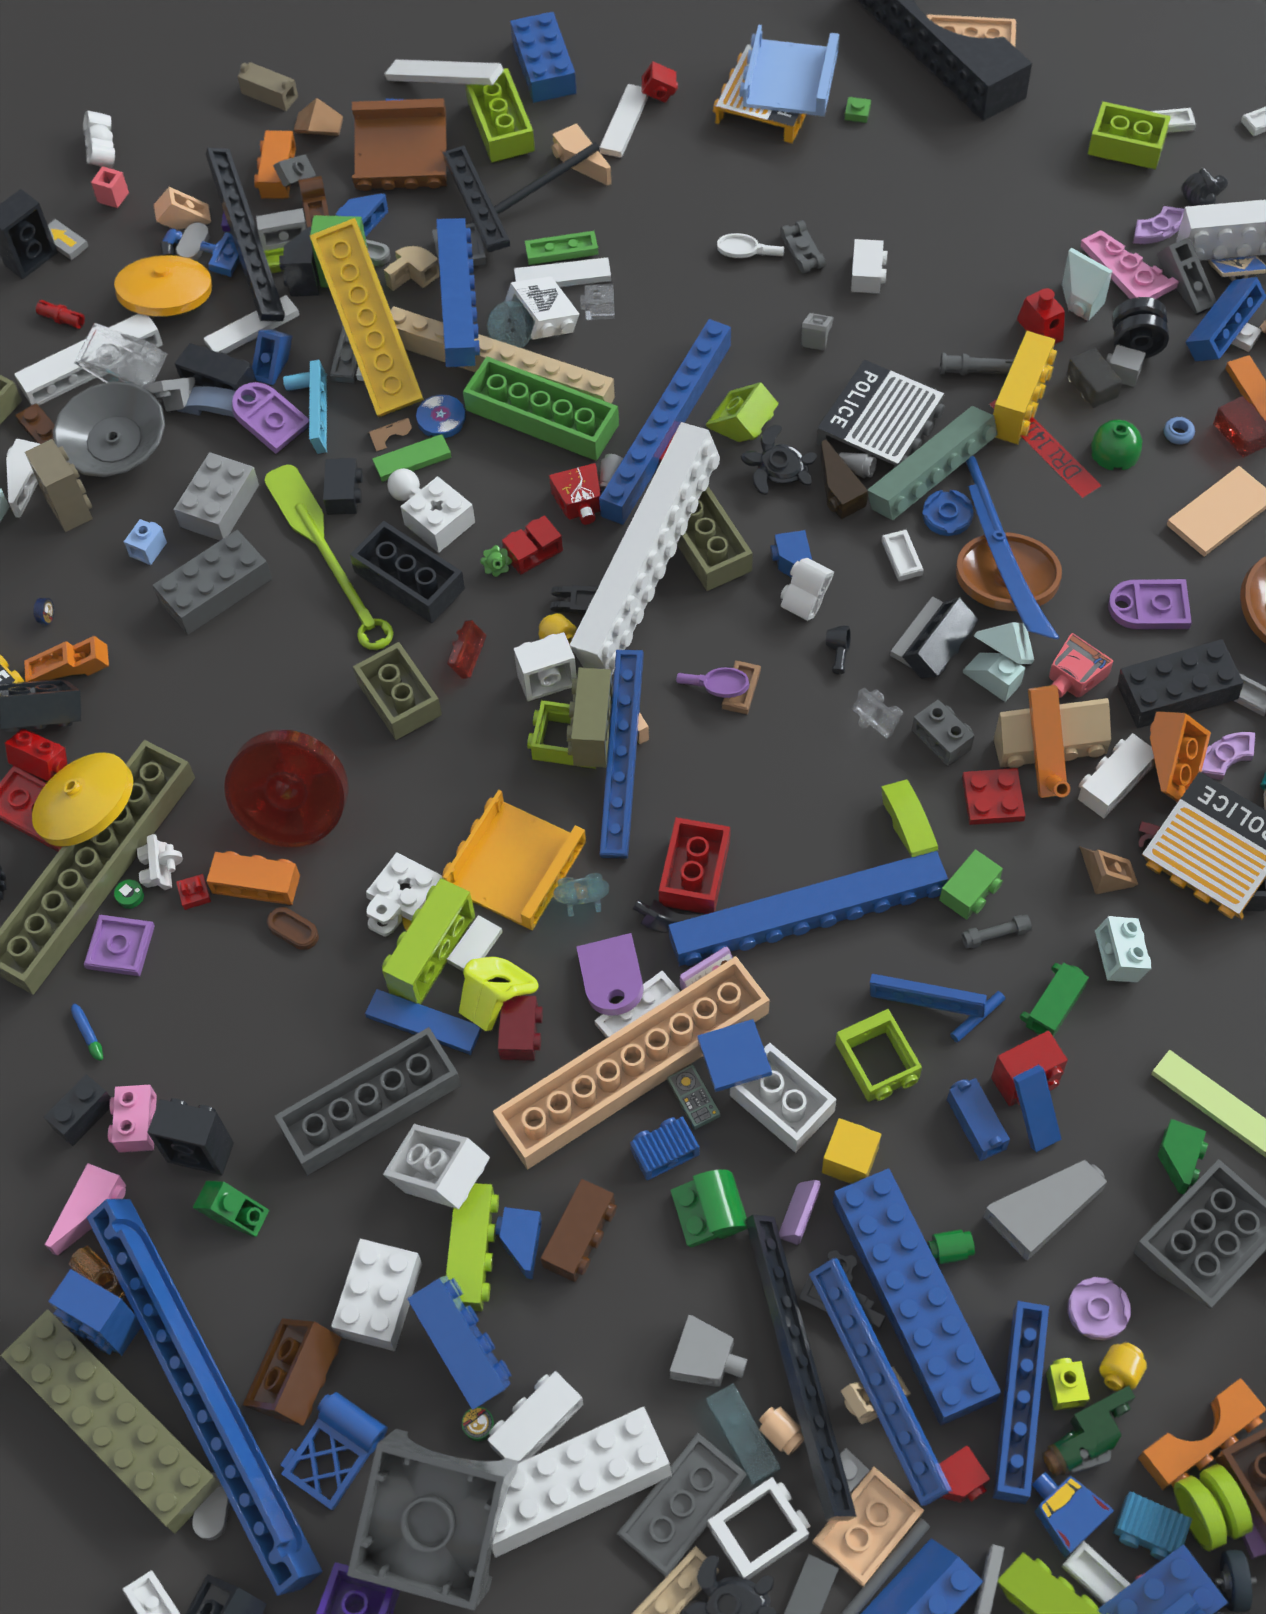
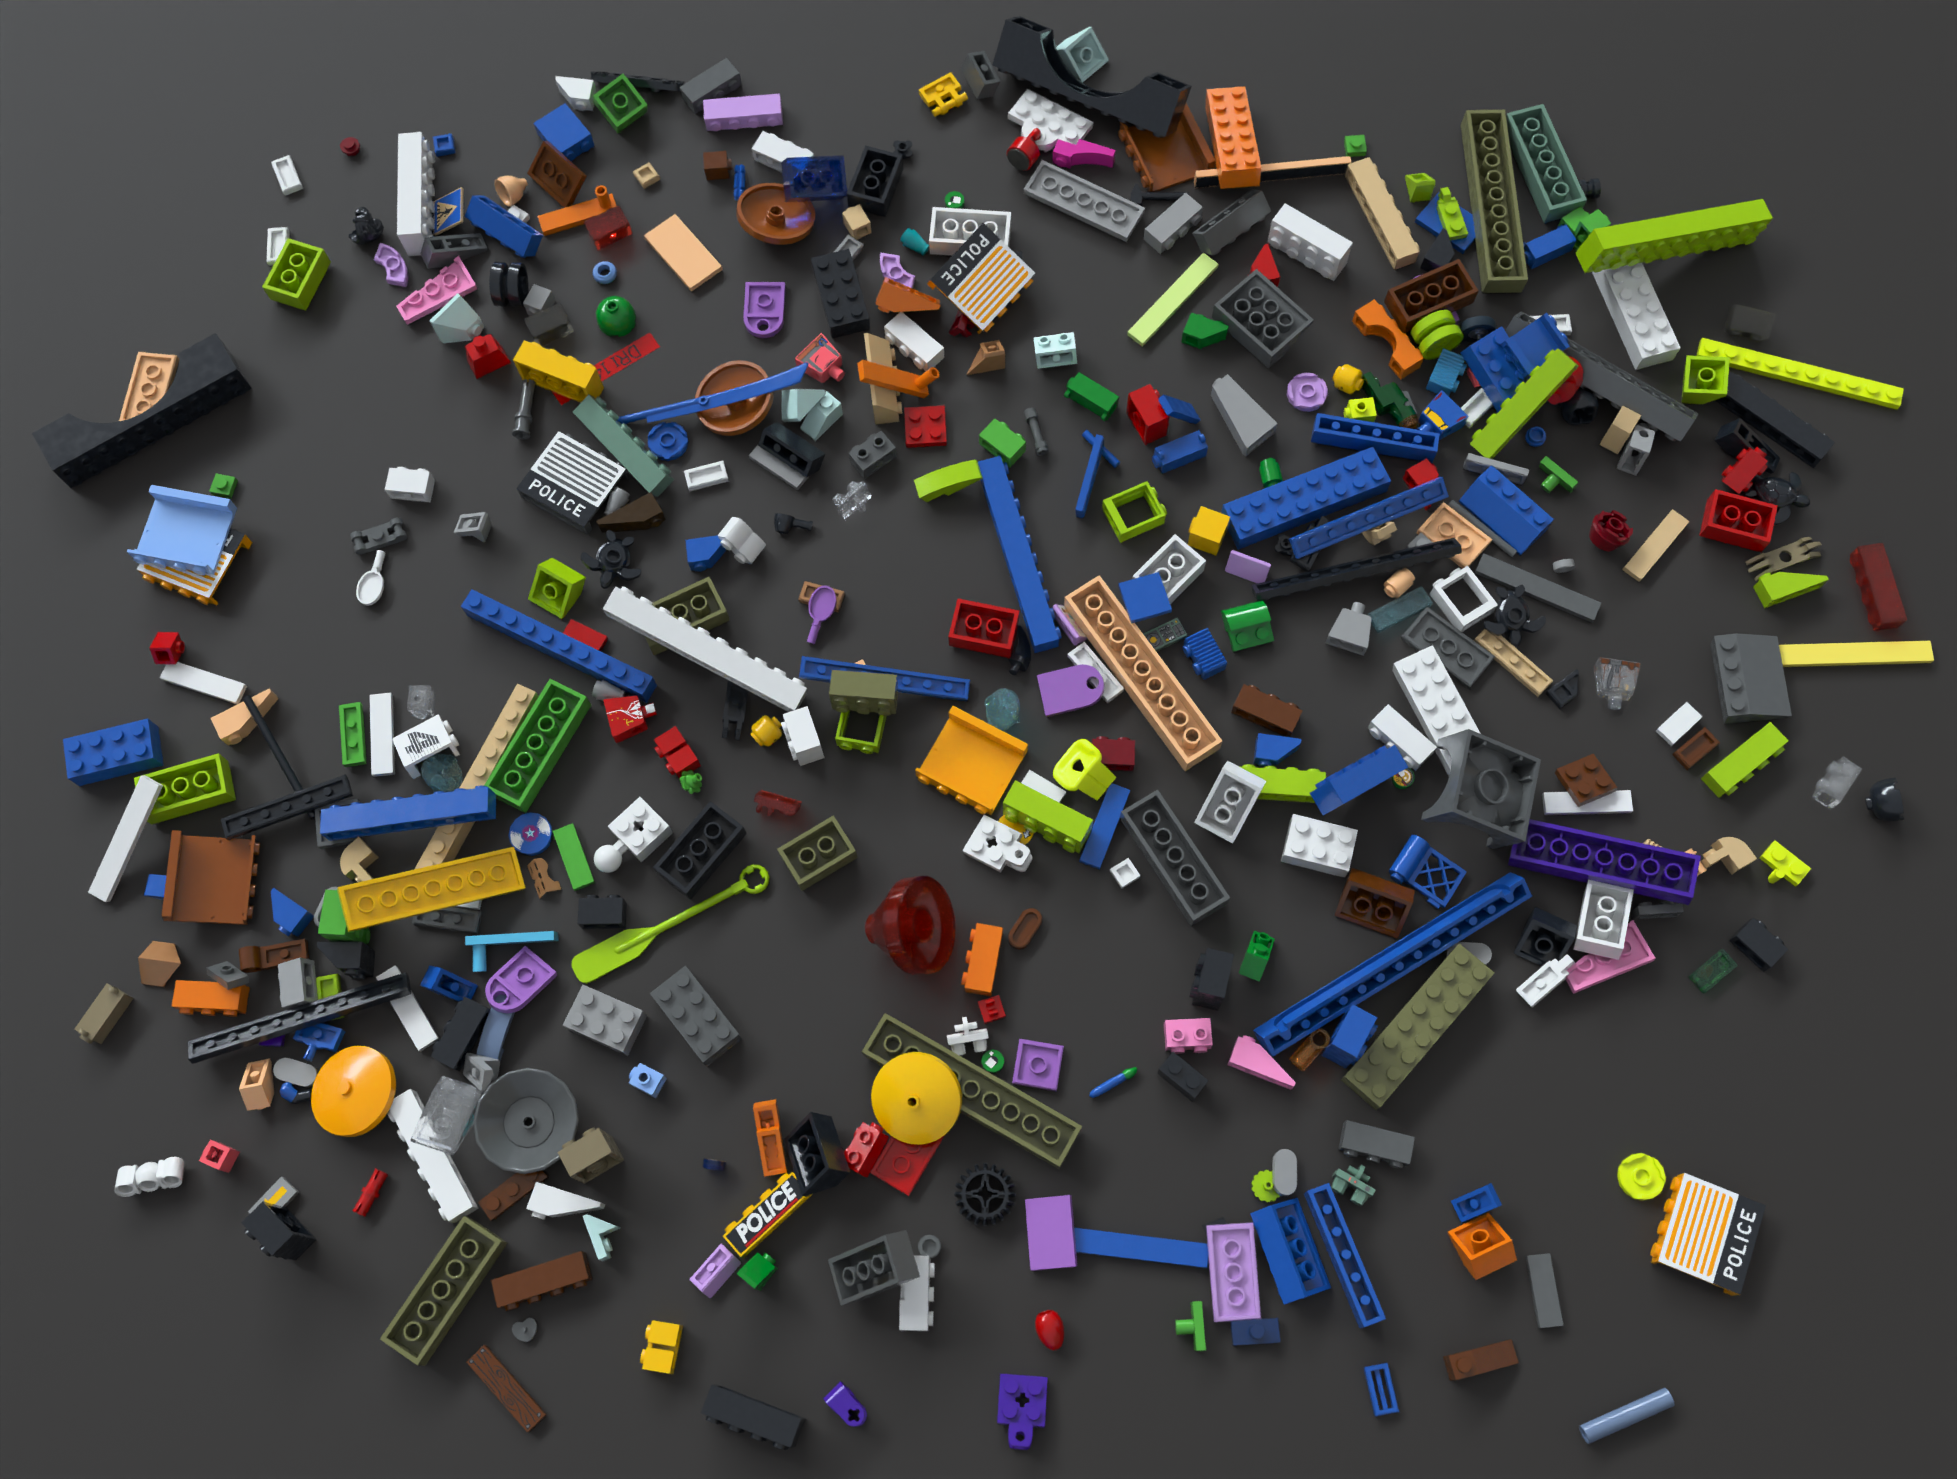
camera: 90 degrees left, 10 degrees up
(355, 1044) = (1125, 873): none -> white plate

